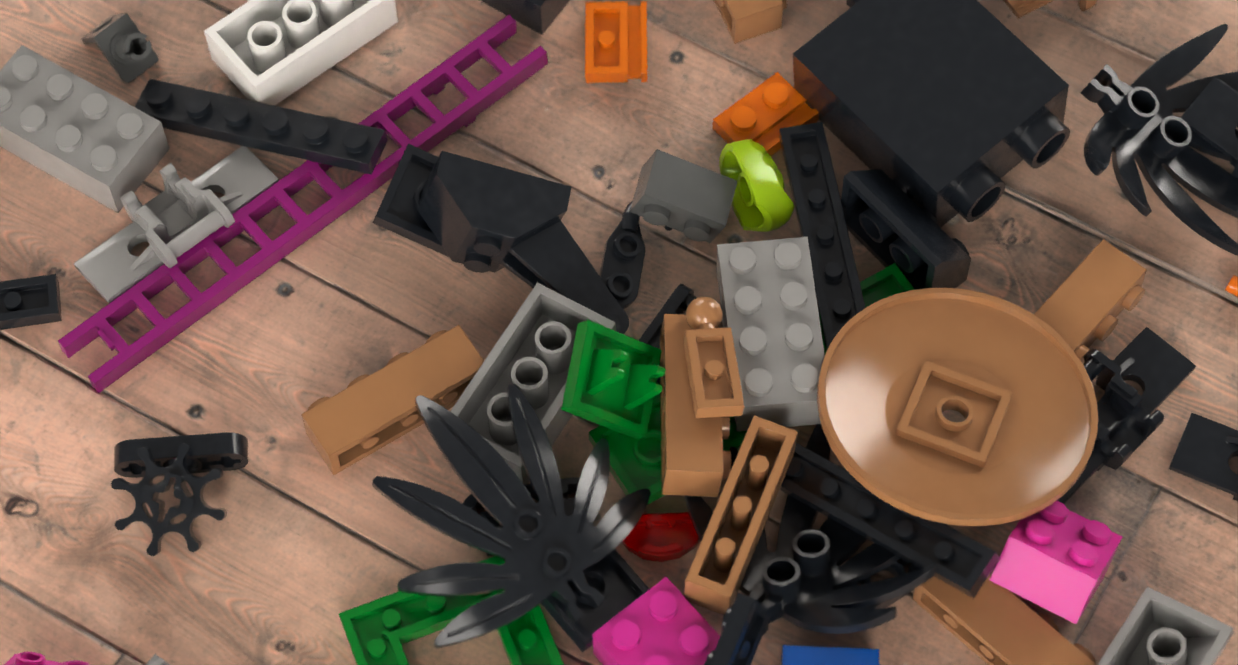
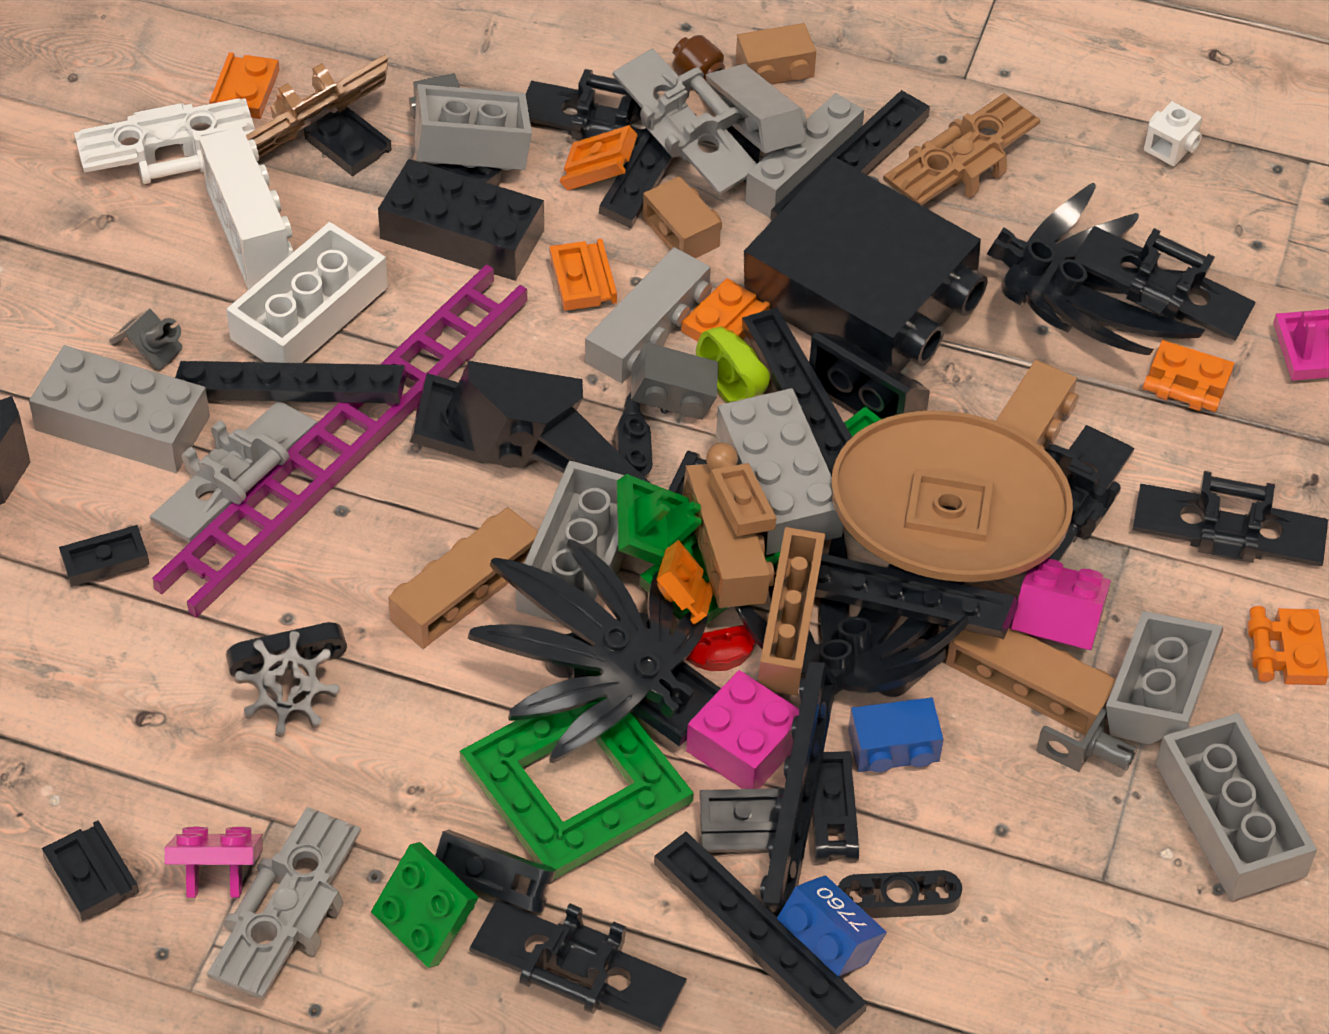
camera: 15 degrees left, 10 degrees down
(627, 460) = (682, 582): none -> orange plate
(677, 104) = (648, 313): none -> light grey brick

